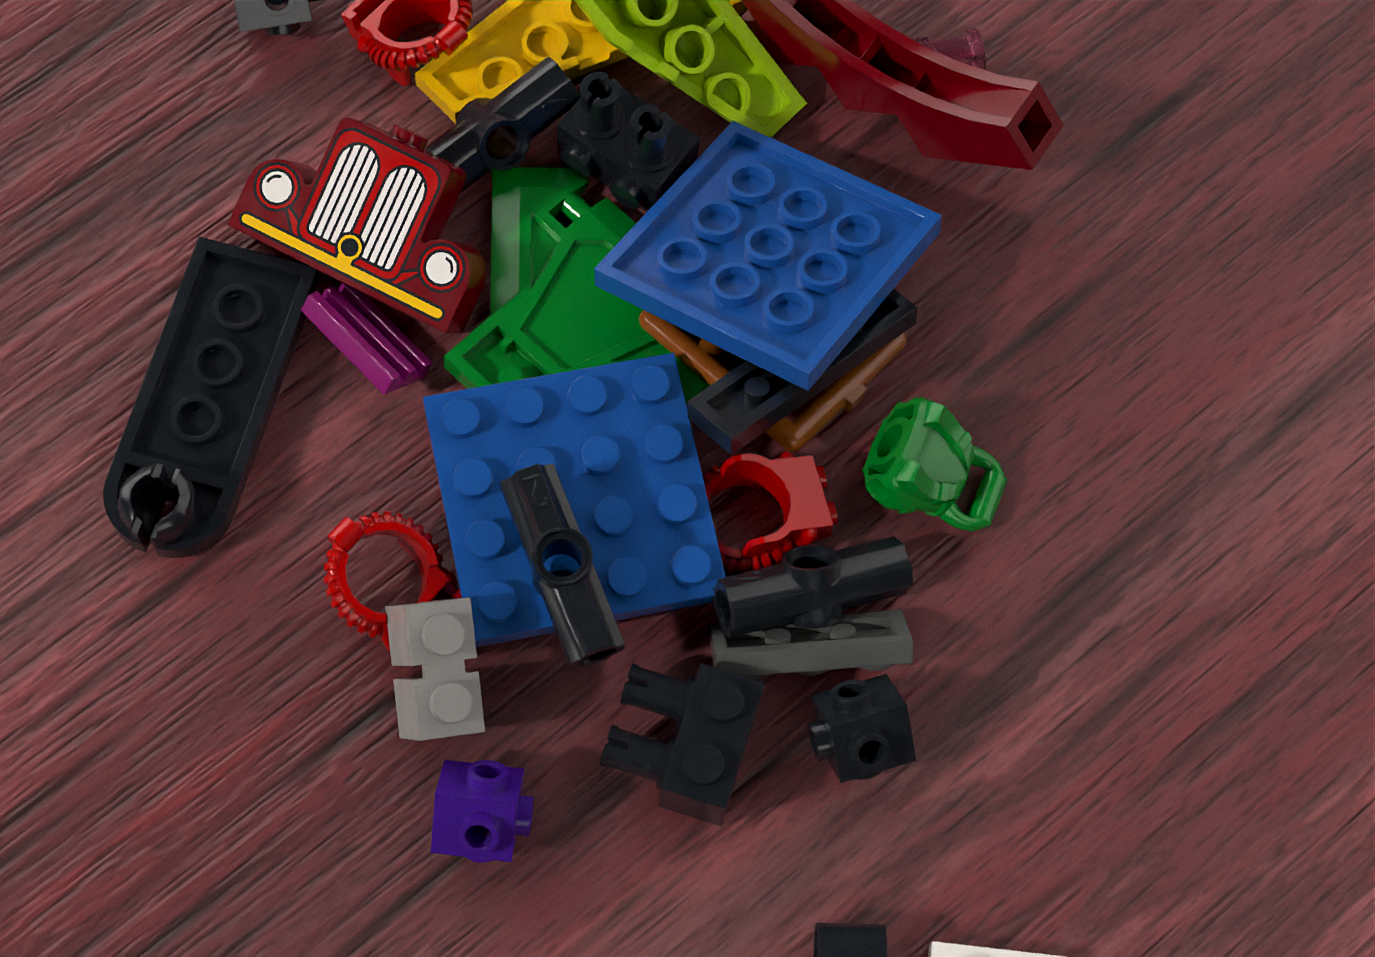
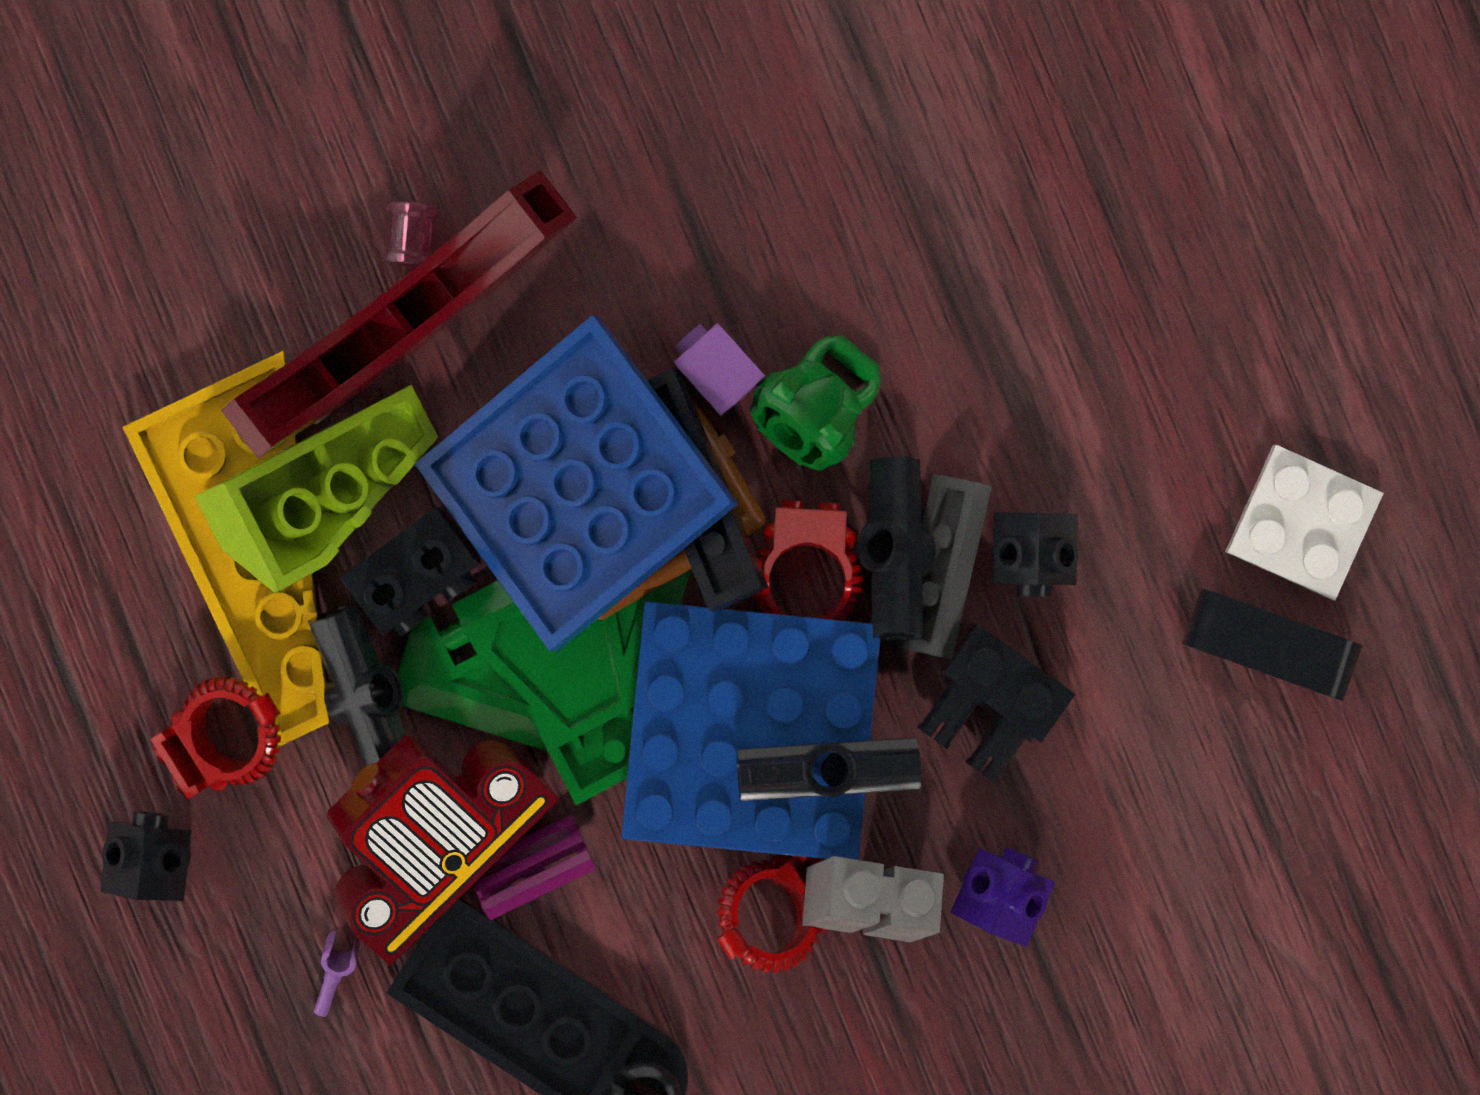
camera: 65 degrees left, 20 degrees up
(214, 188) = (336, 966): none -> medium lavender hand
(929, 361) = (716, 367): none -> medium lavender brick

